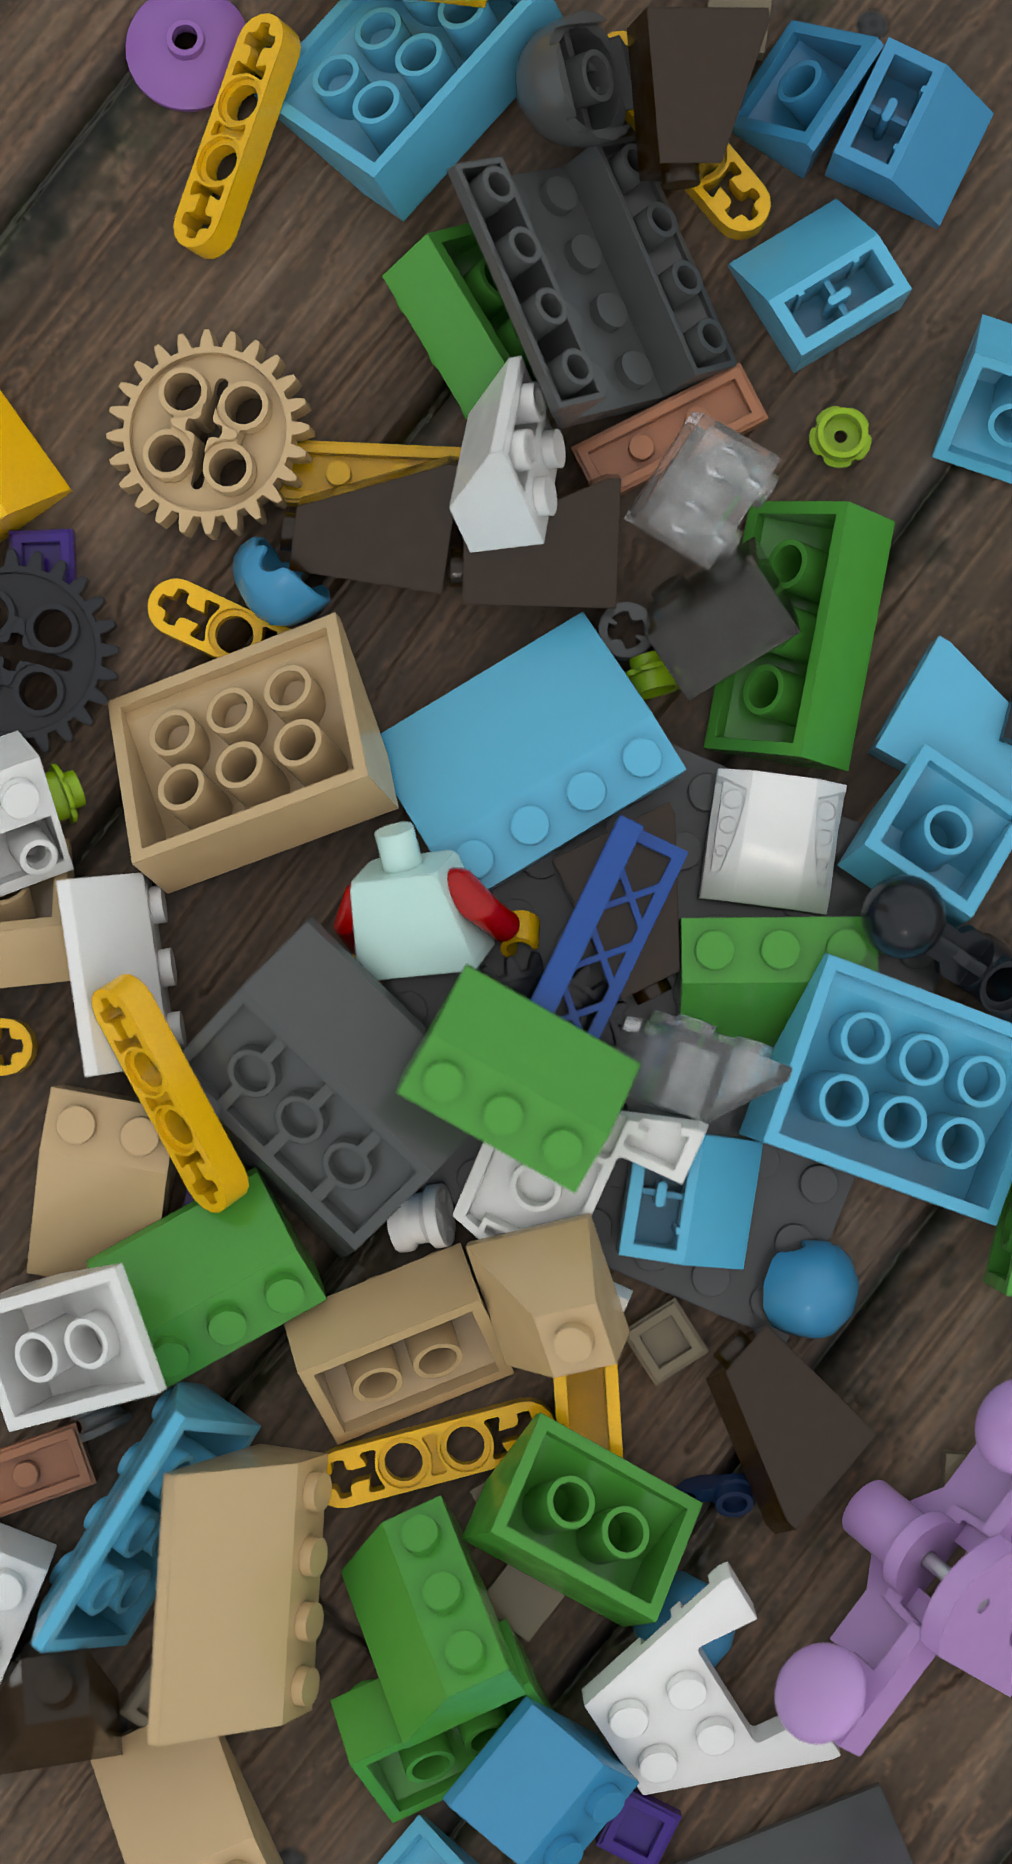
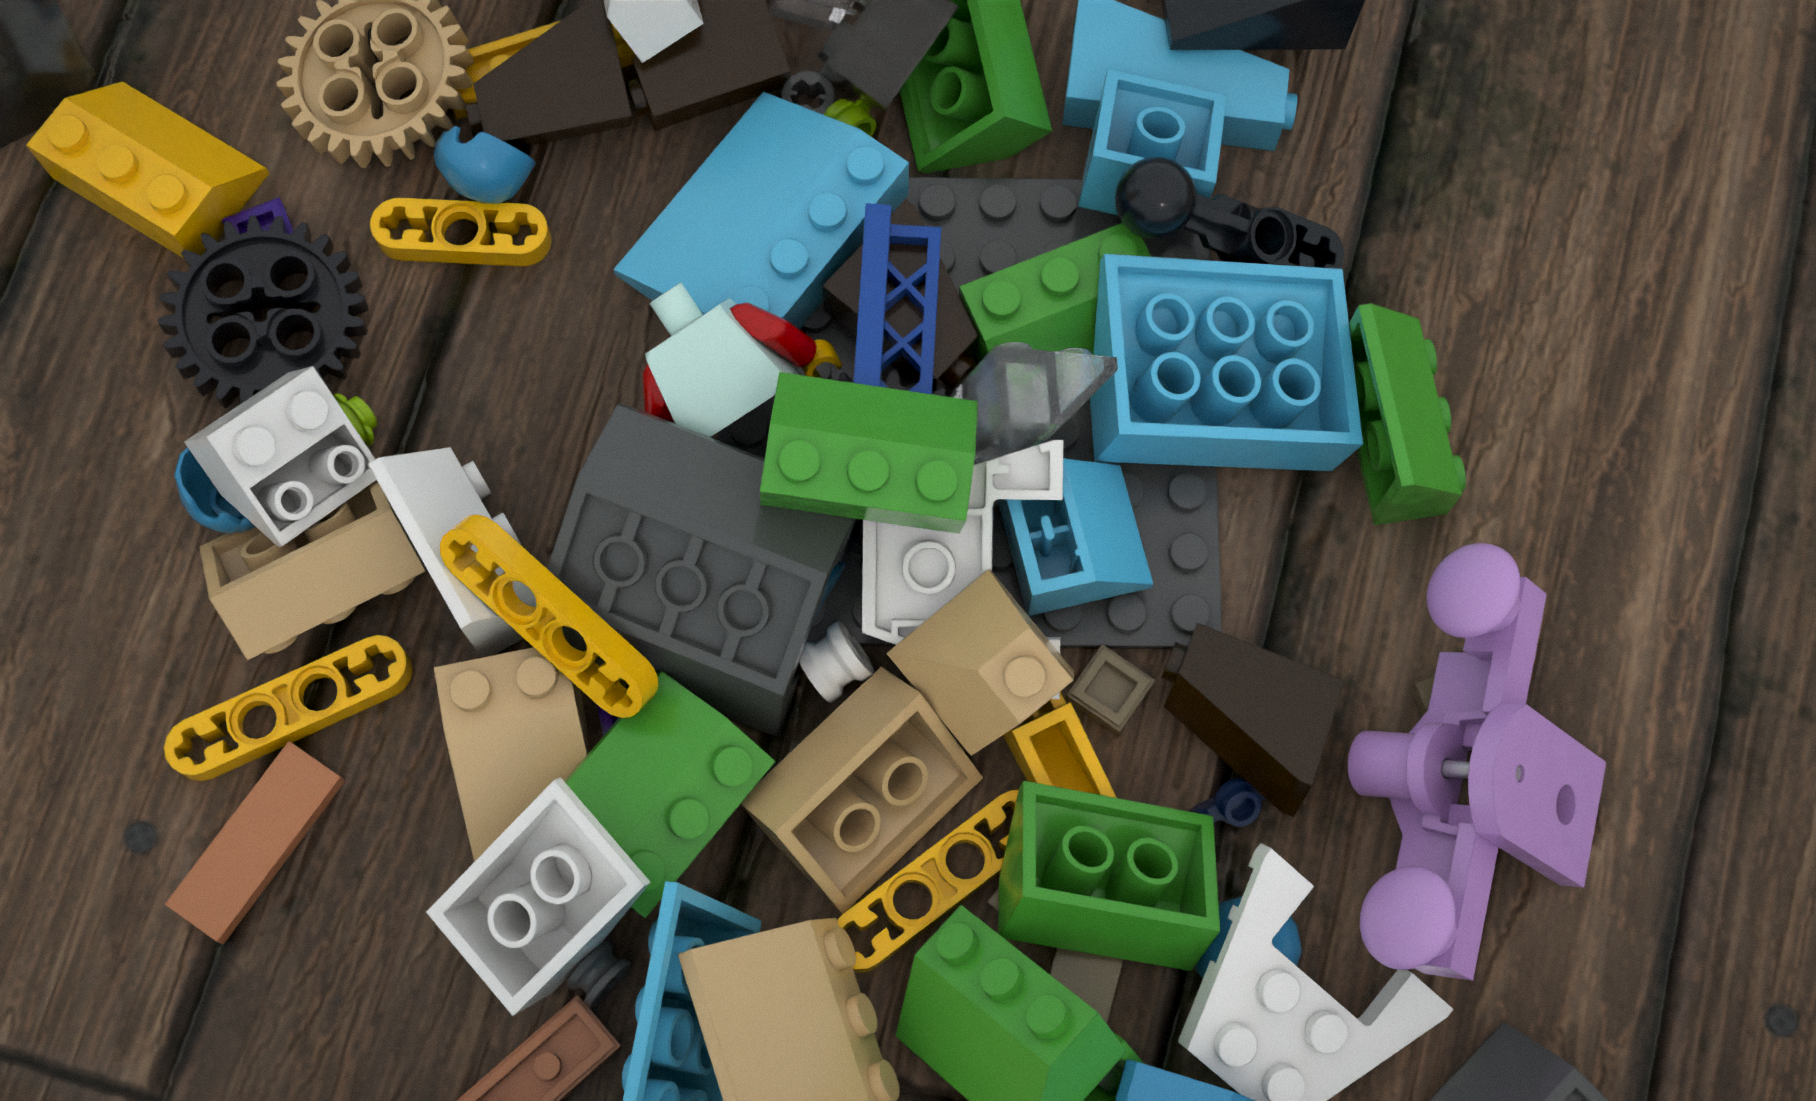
camera: 20 degrees left, 15 degrees down
(248, 756) = (511, 316): tan slope -> none
(772, 840) = (1007, 200): white slope -> none
(810, 1290) = (1223, 581): dark azure hair -> none

